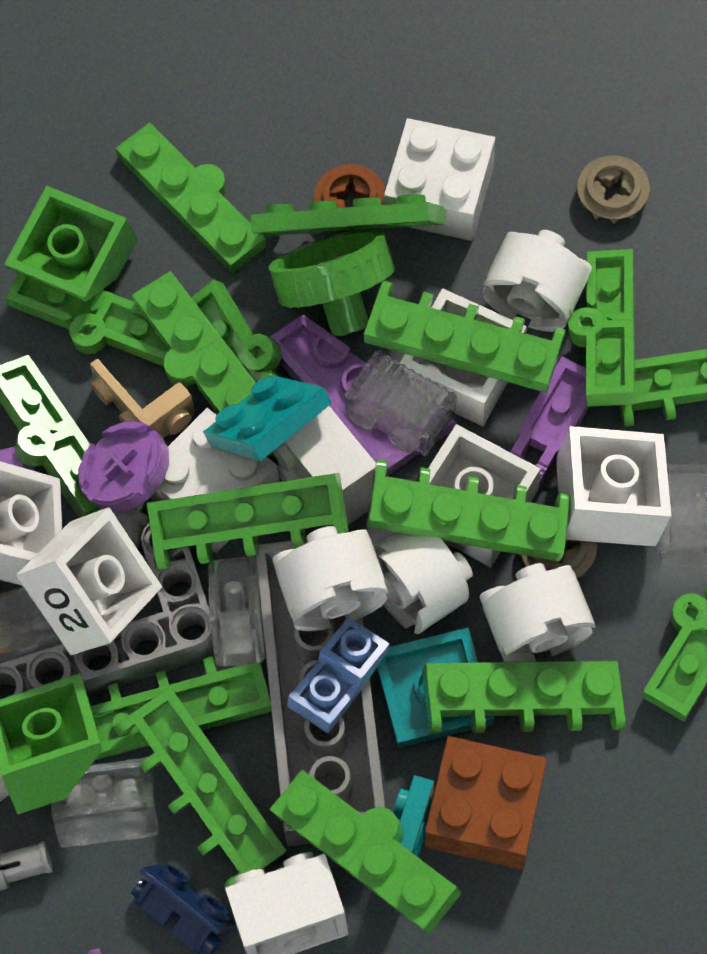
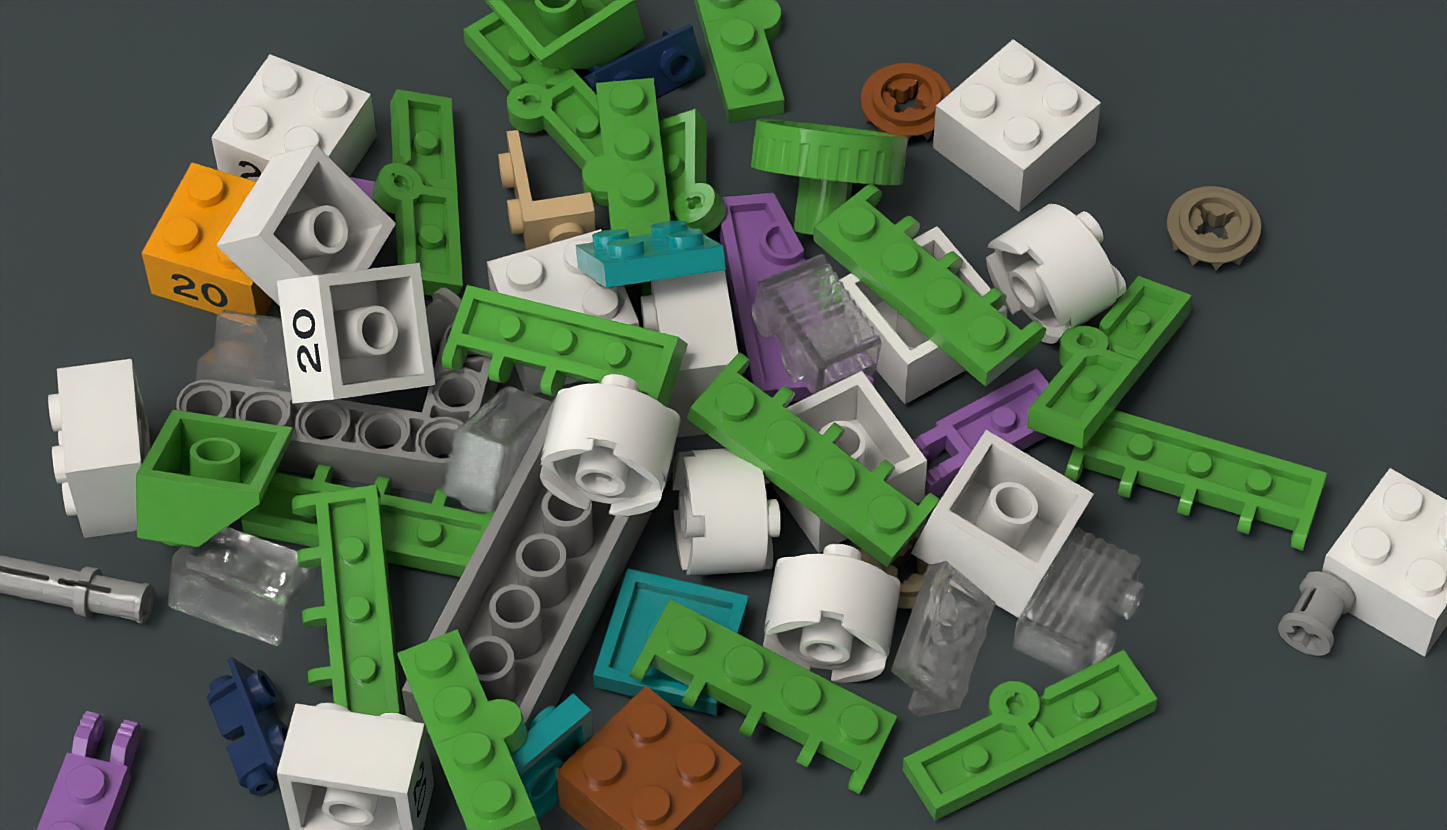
camera: 25 degrees right, 10 degrees down
(124, 466) = (472, 246): medium lavender tile -> none
(159, 252) = (669, 60): none -> dark blue hinge
(338, 675) = (568, 557): medium blue slope -> none
(365, 214) = (893, 113): bright green hinge -> none
(622, 592) = (942, 640): none -> clear bracket

